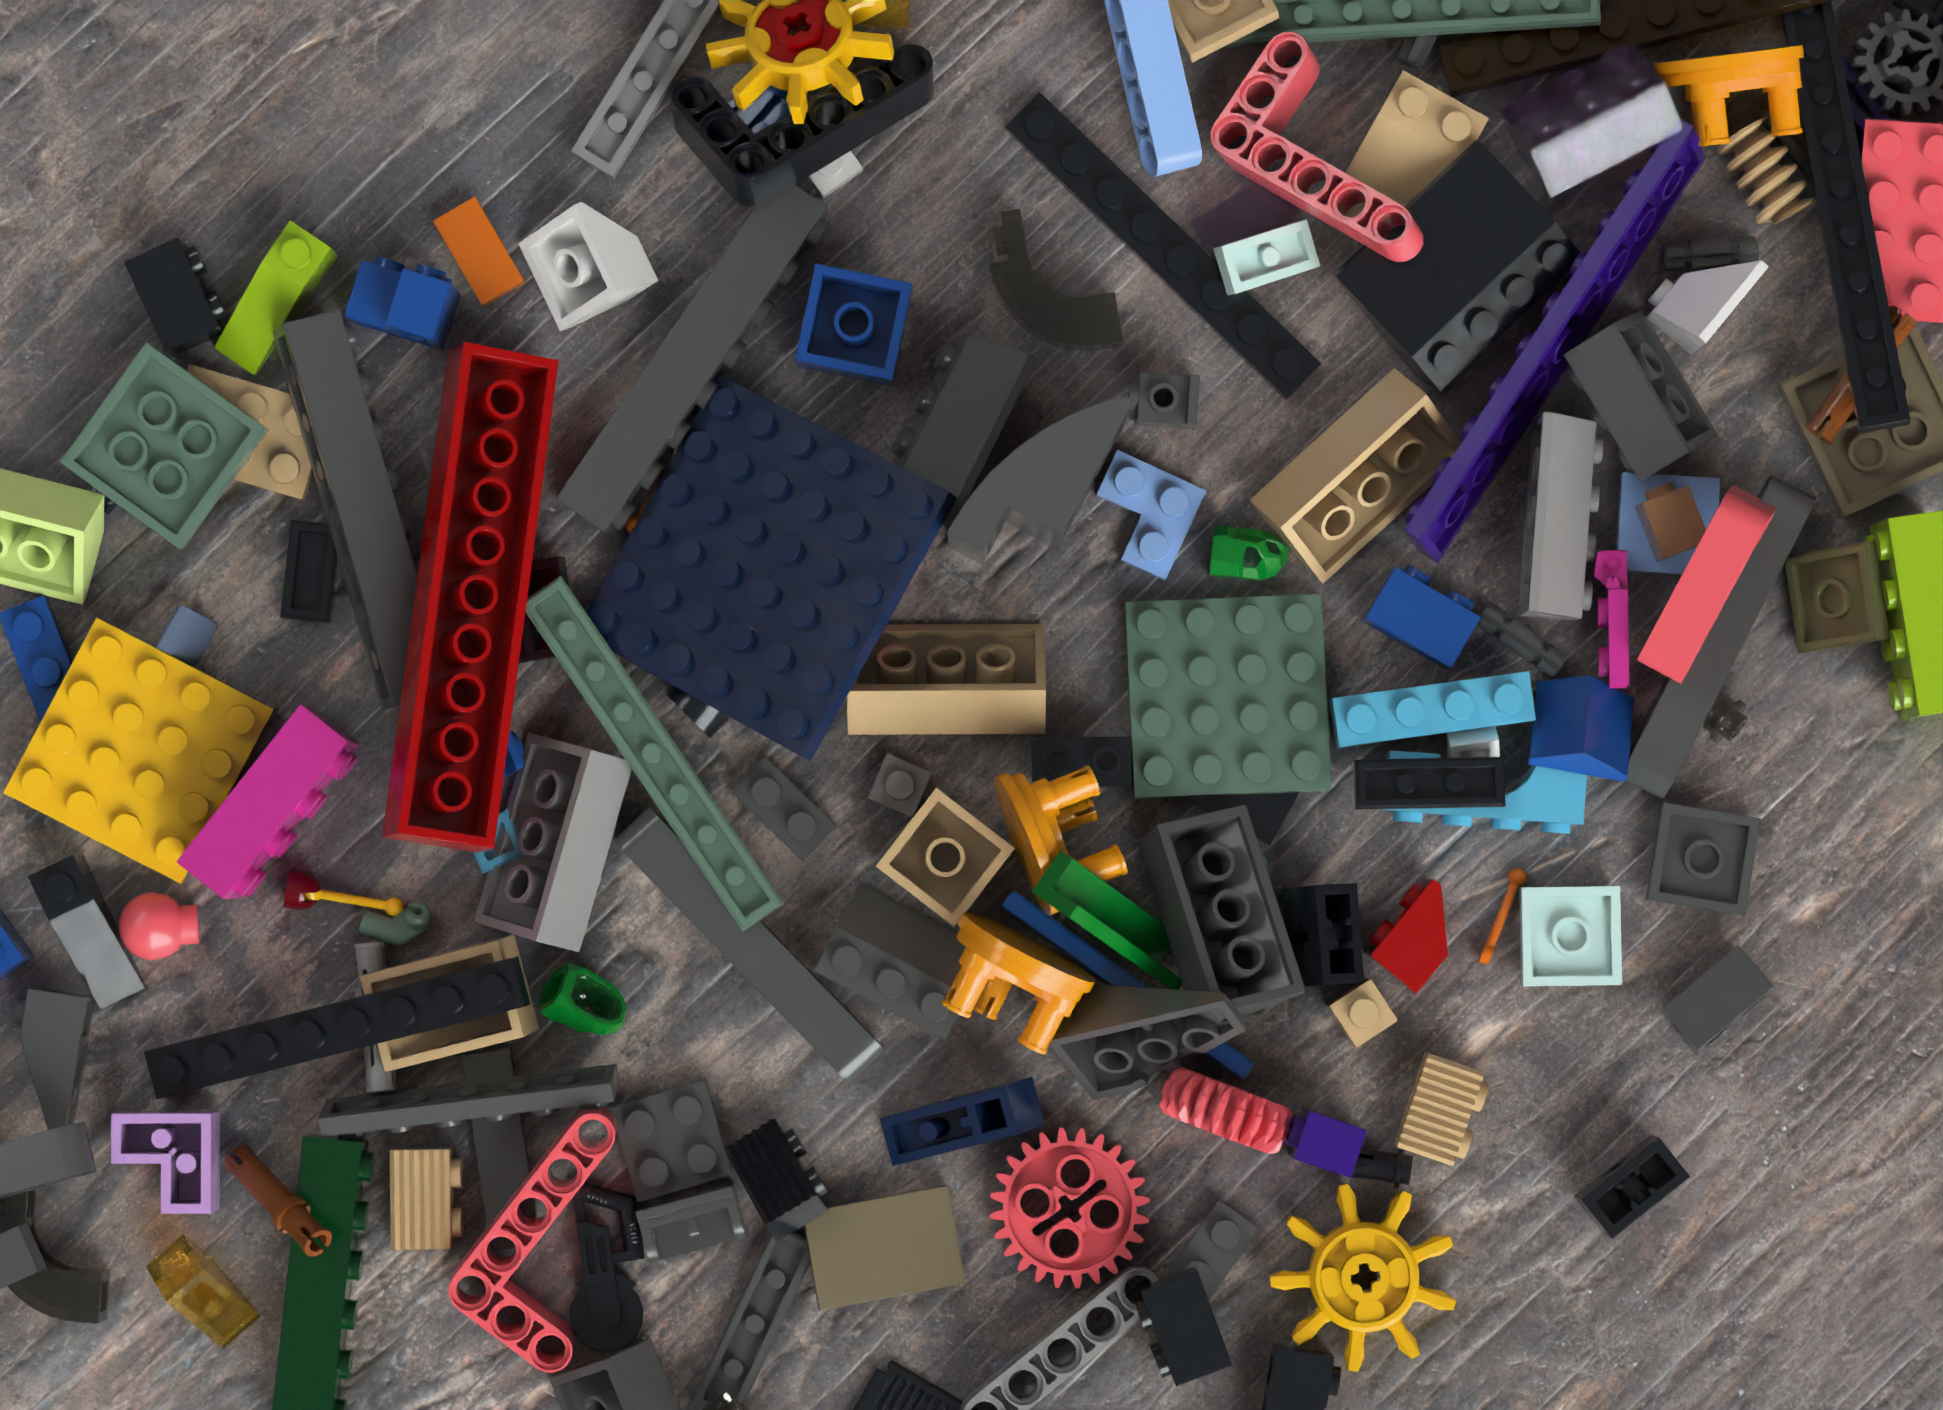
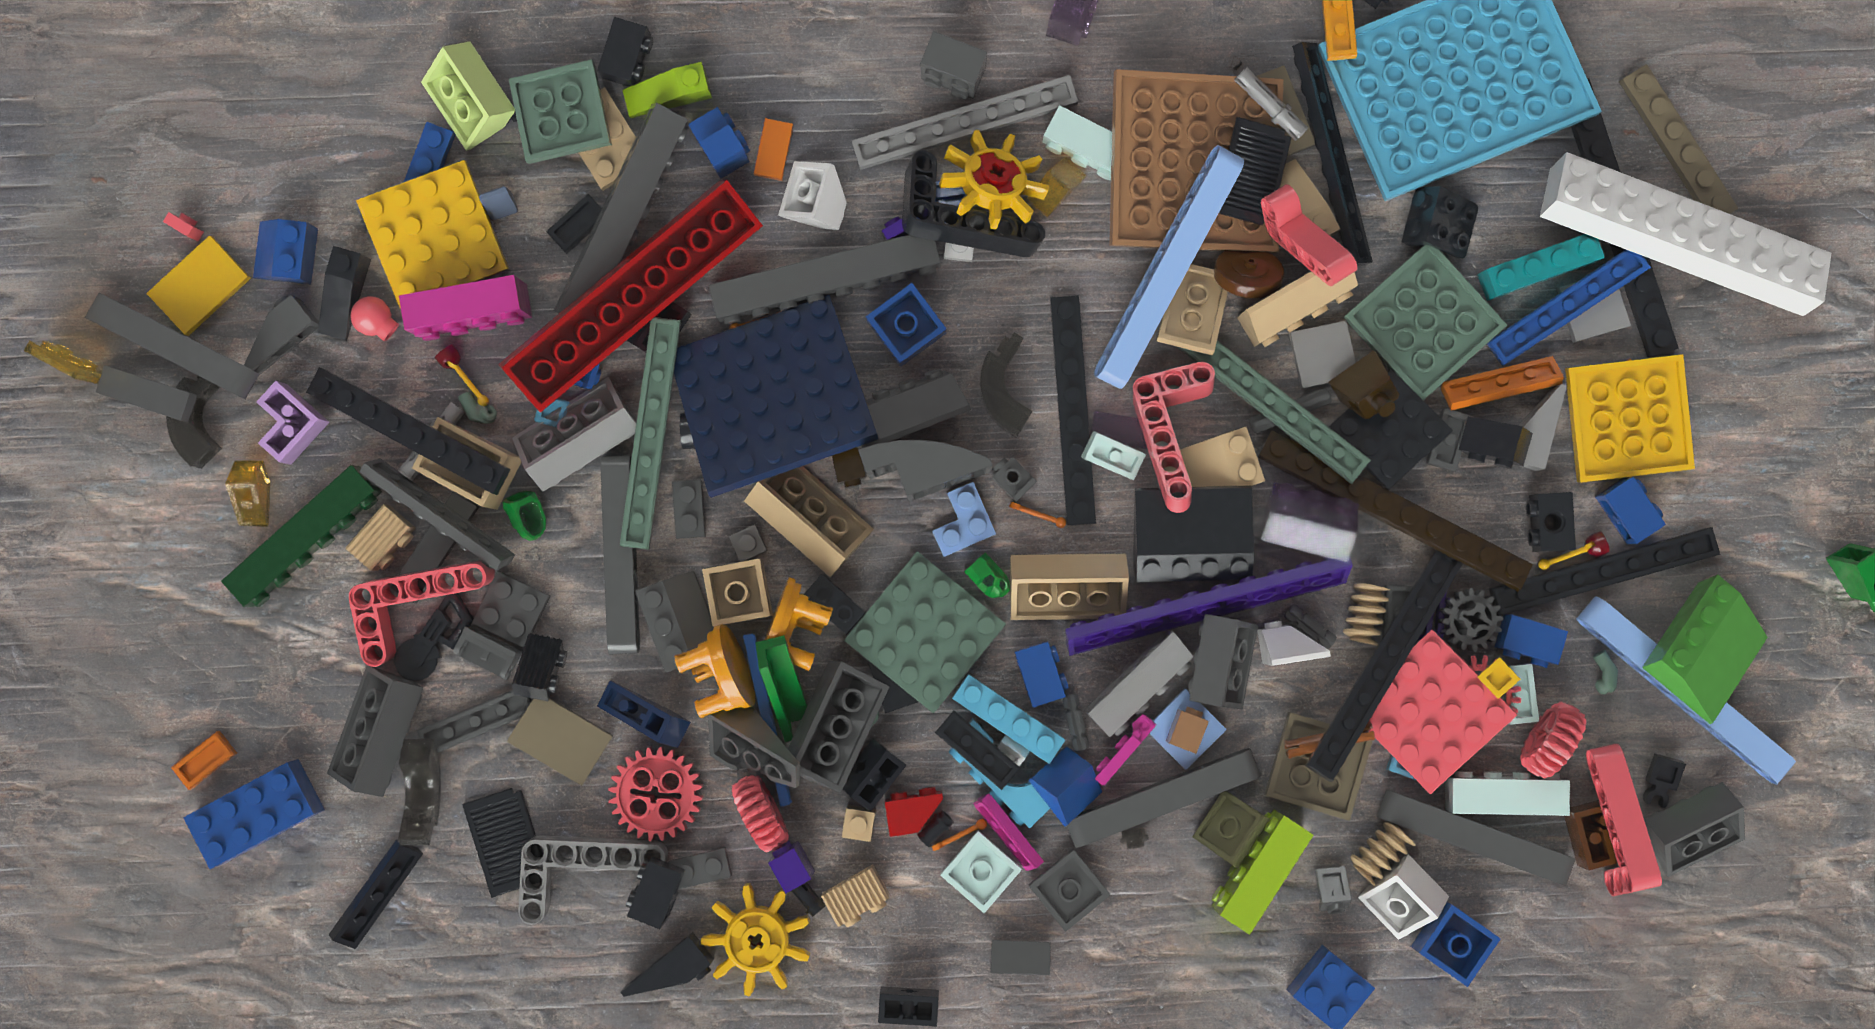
camera: 45 degrees right, 0 degrees up
(288, 1211) = (313, 491): dark orange pin -> none
(728, 217) = (893, 229): none -> dark purple plate
(945, 573) = (849, 468): none -> dark brown brick
(1273, 403) = (1060, 521): none -> orange hinge
(1464, 933) = (935, 828): none -> black pin
(1560, 855) = (1008, 832): none -> dark pink tile
(1706, 583) = (1178, 771): coral beam -> none
(1713, 77) = (1381, 551): light orange piece -> none

